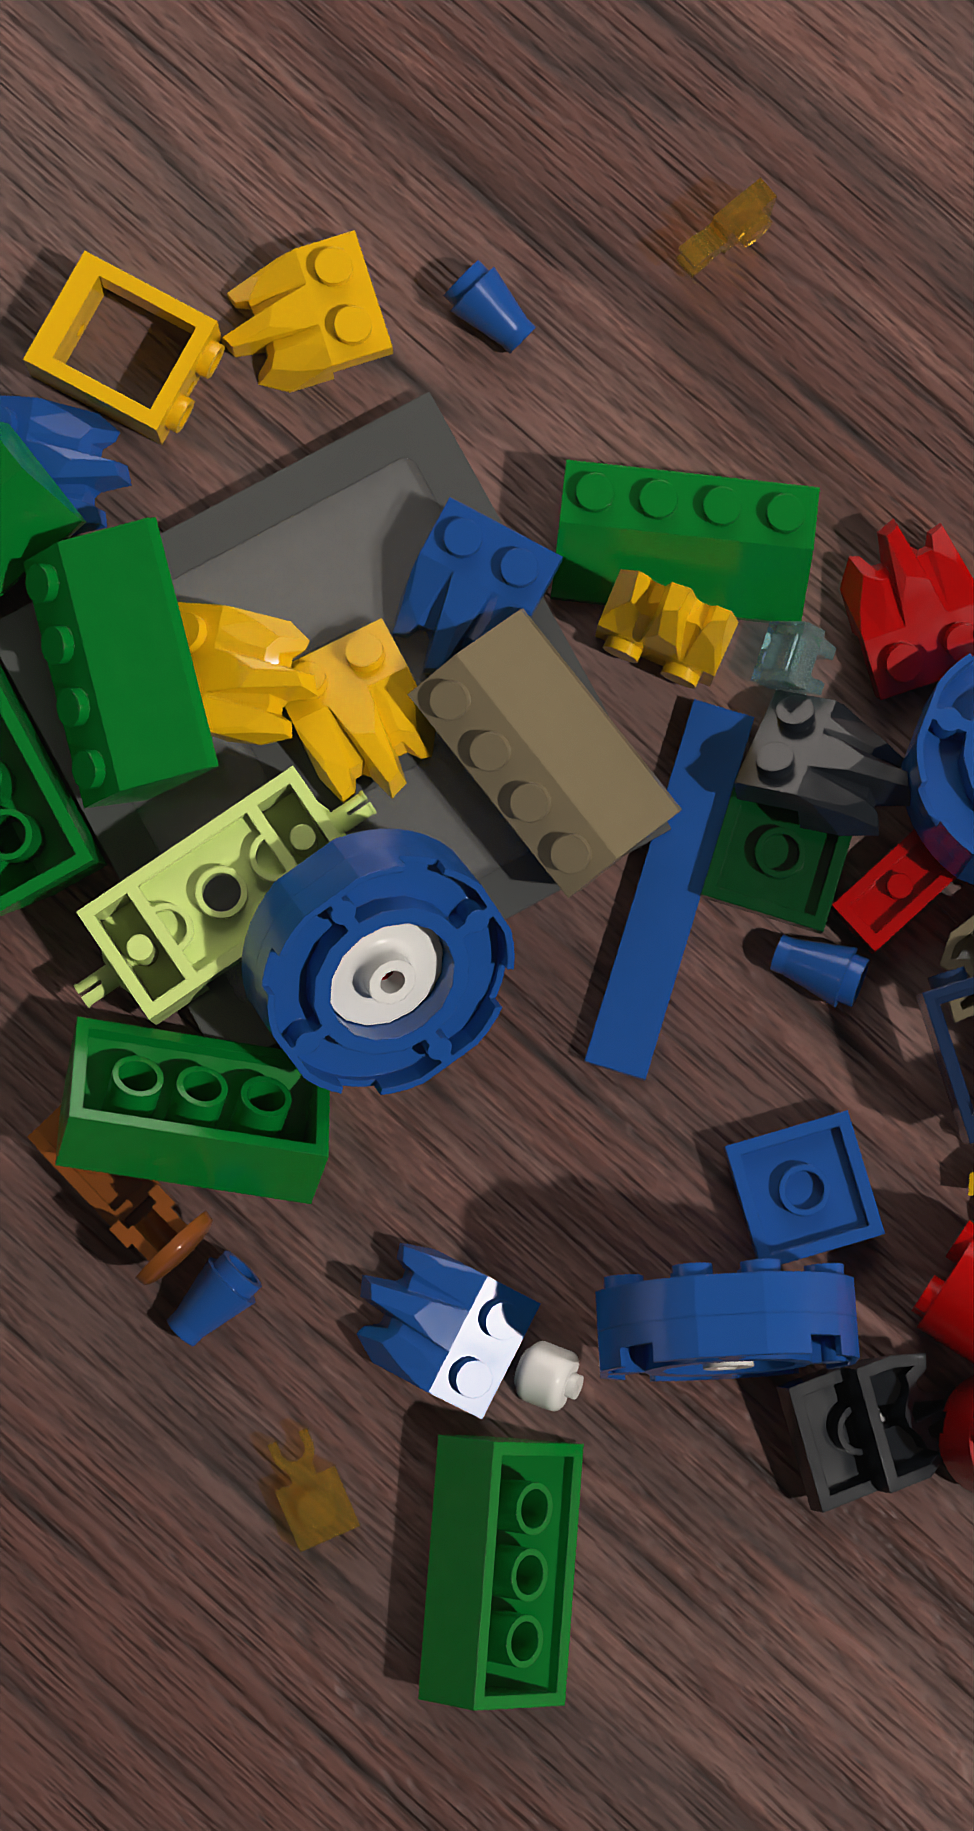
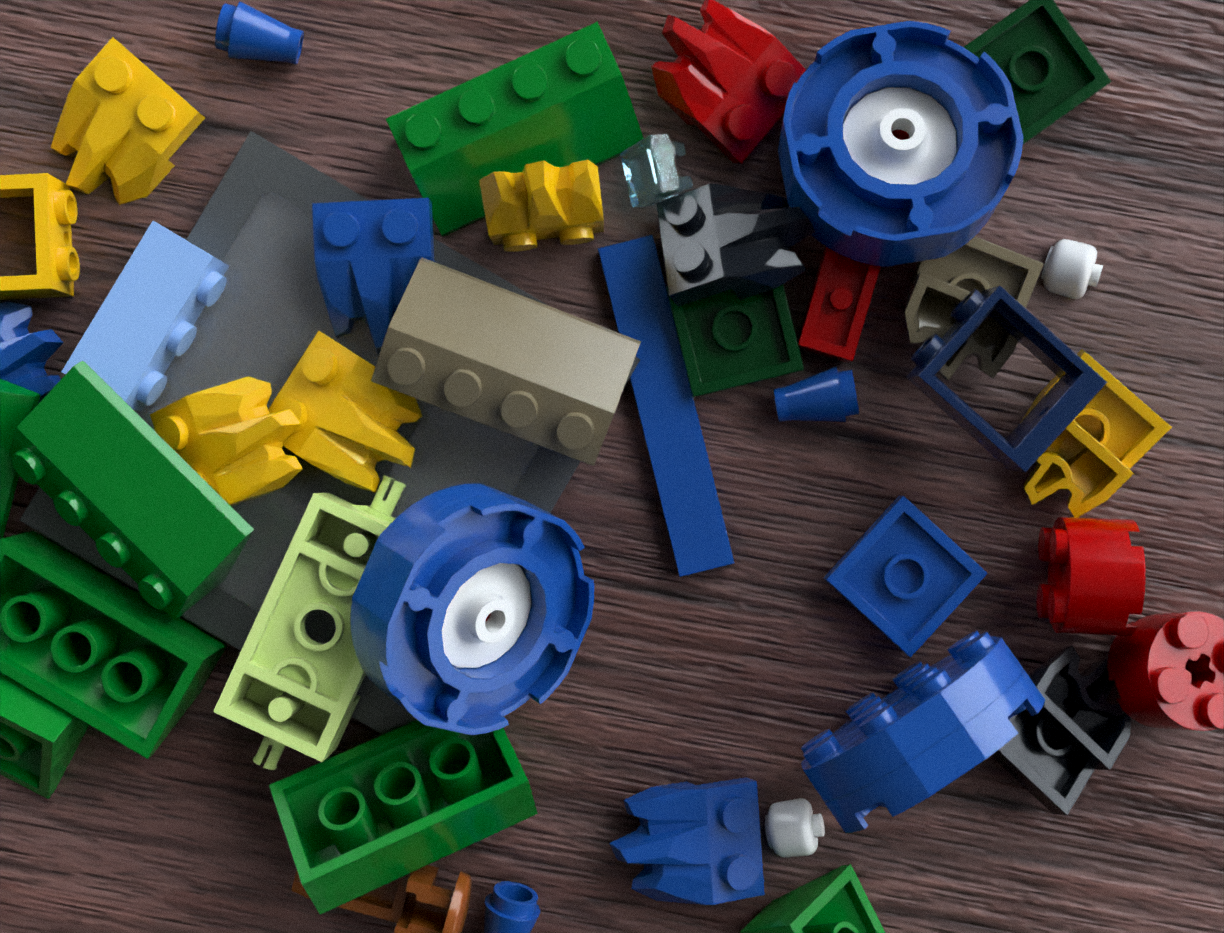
camera: 25 degrees left, 5 degrees up
(237, 508) = (150, 315): none -> light blue brick

